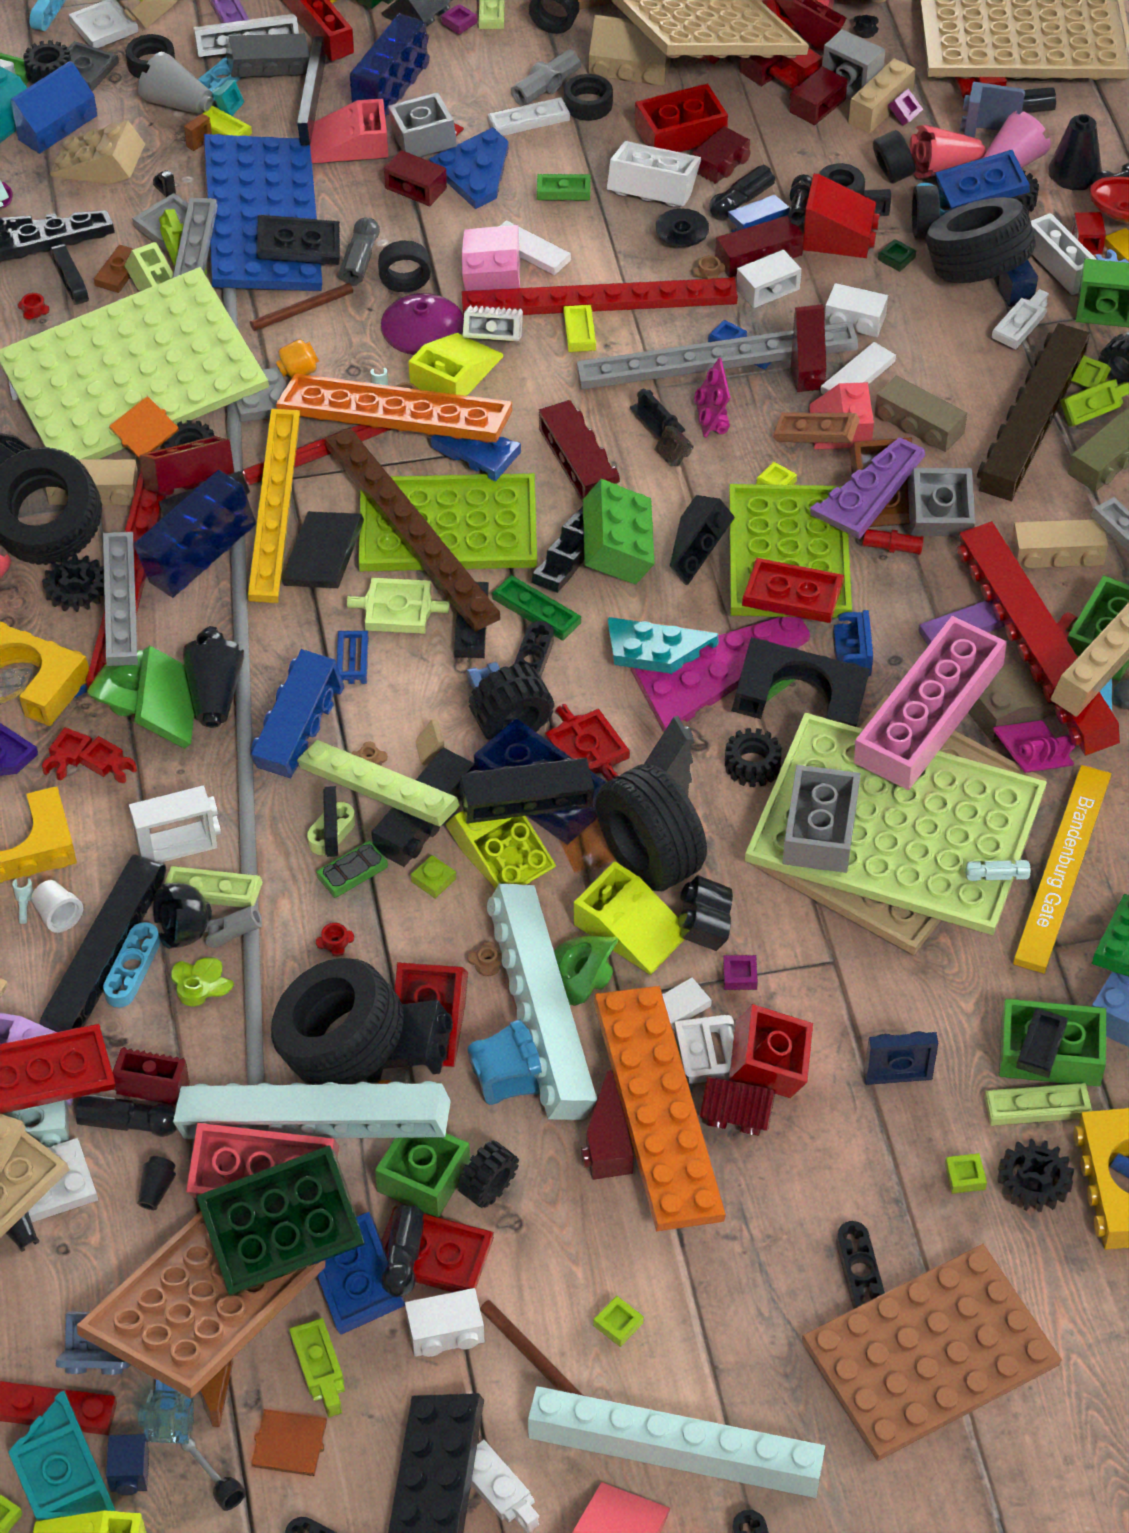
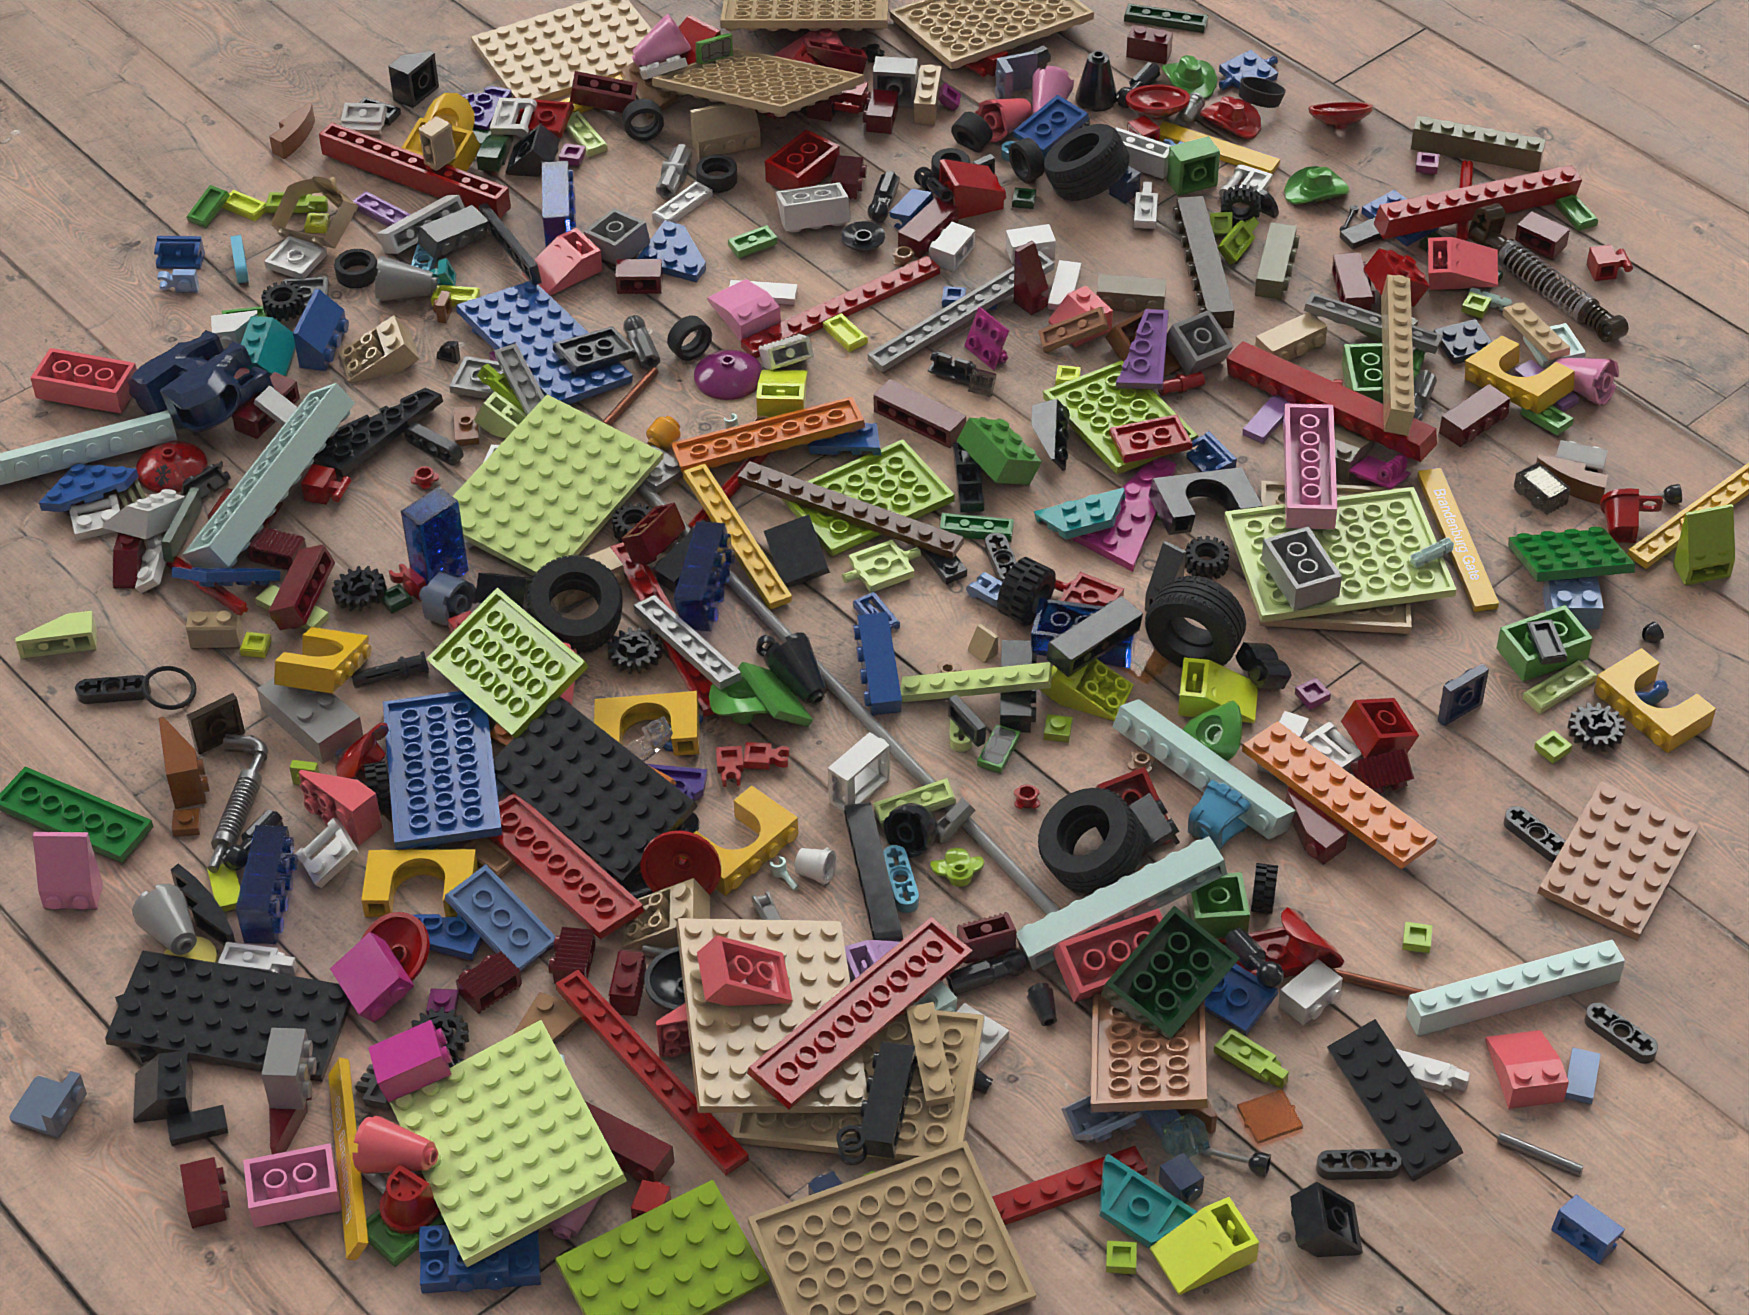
camera: 30 degrees left, 5 degrees down
(144, 427) = (597, 522): orange piece -> none
(478, 1255) = (1306, 943): none -> red hat

